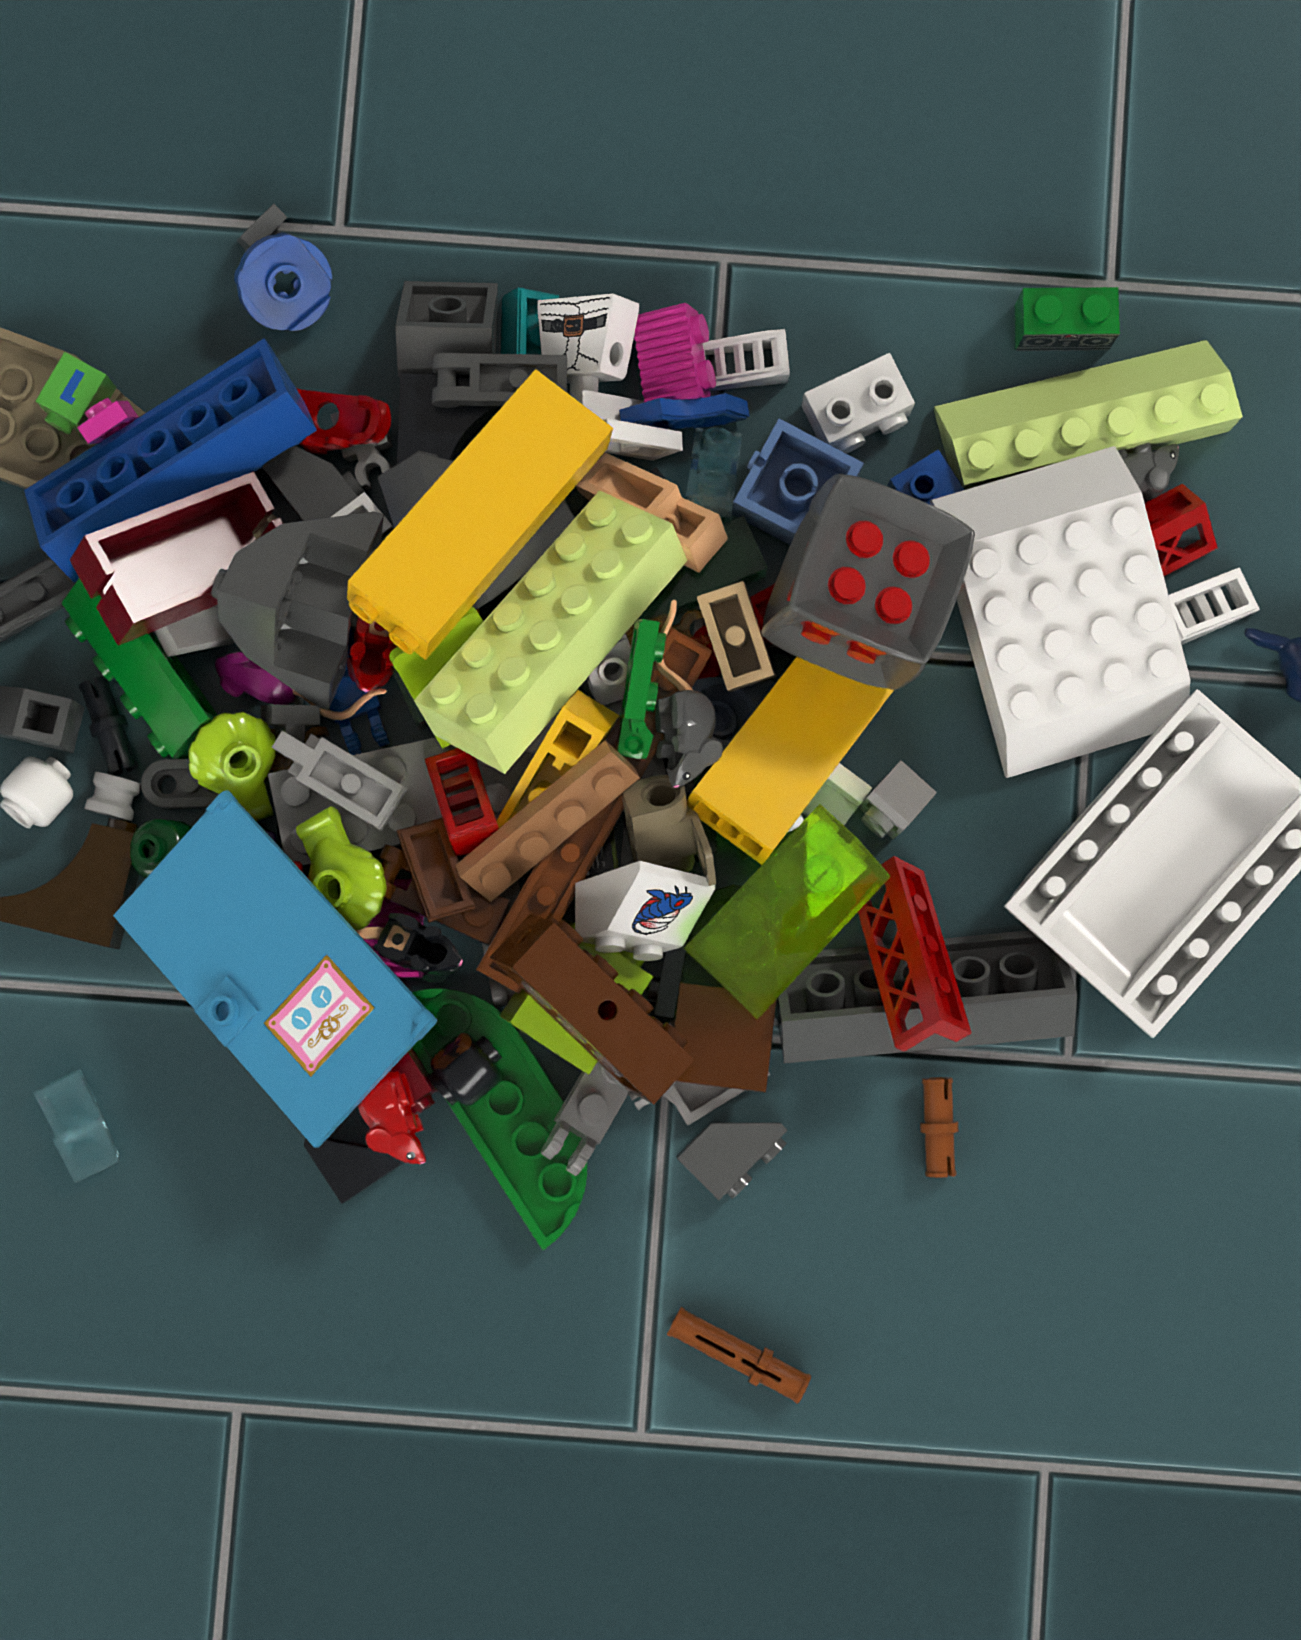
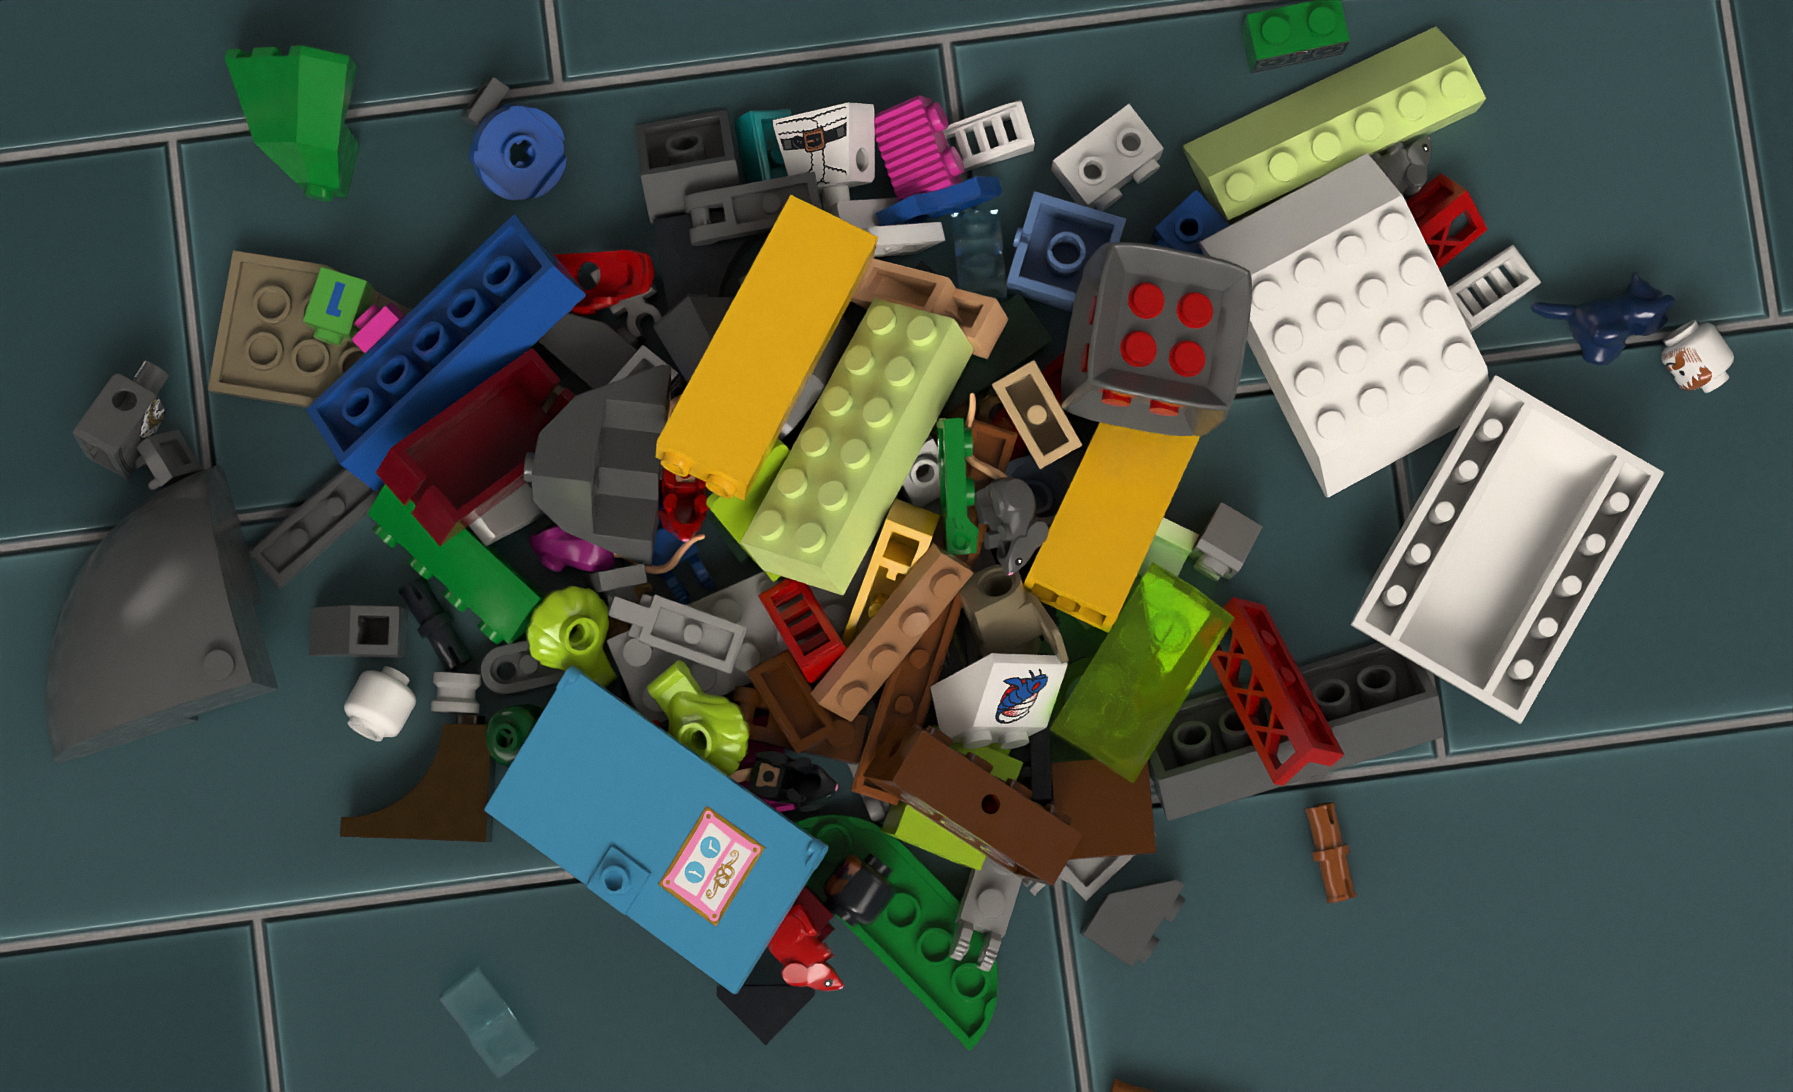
camera: 10 degrees left, 0 degrees up
(73, 198) = (299, 113): none -> green brick

